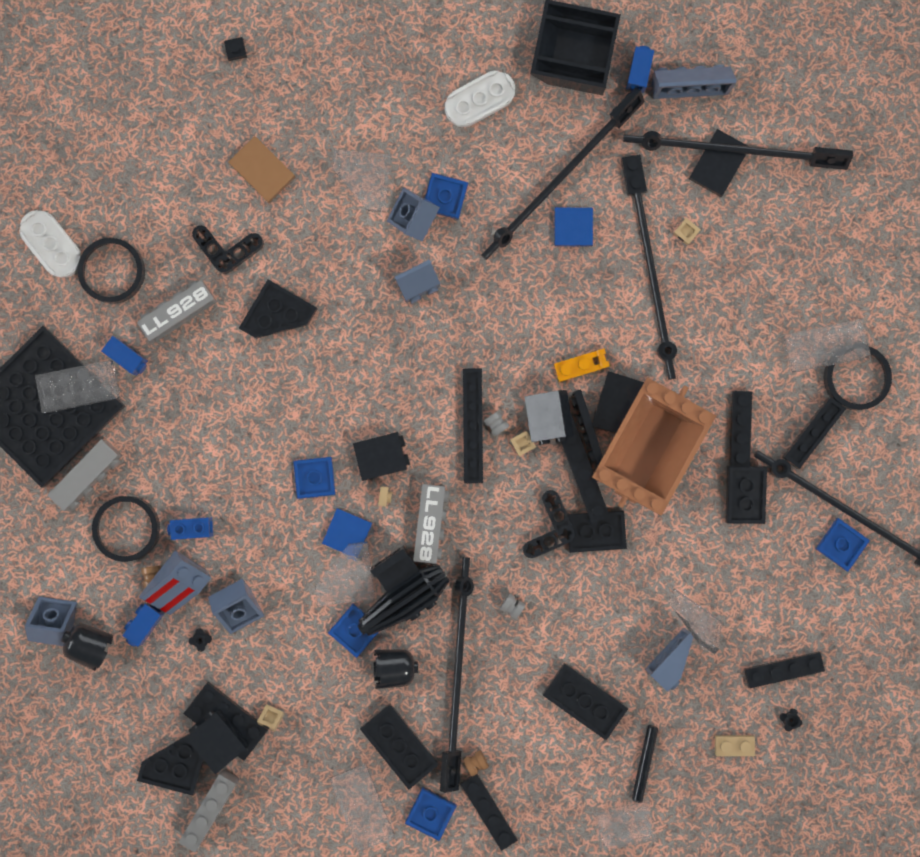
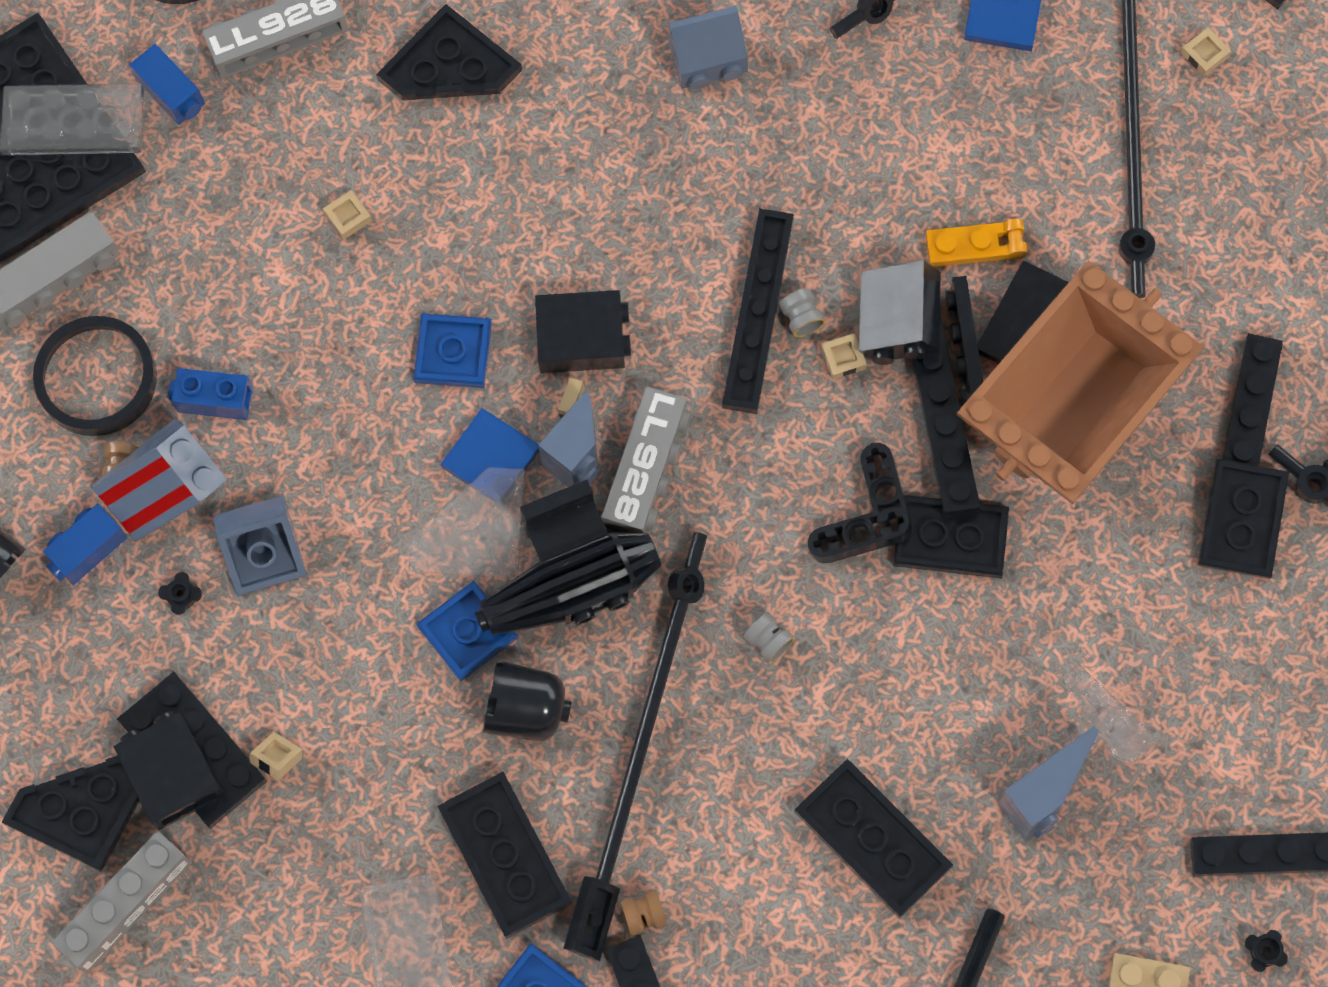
camera: 15 degrees right, 15 degrees down
(240, 412) = (347, 214): none -> tan plate
(391, 525) = (571, 447): none -> sand blue slope

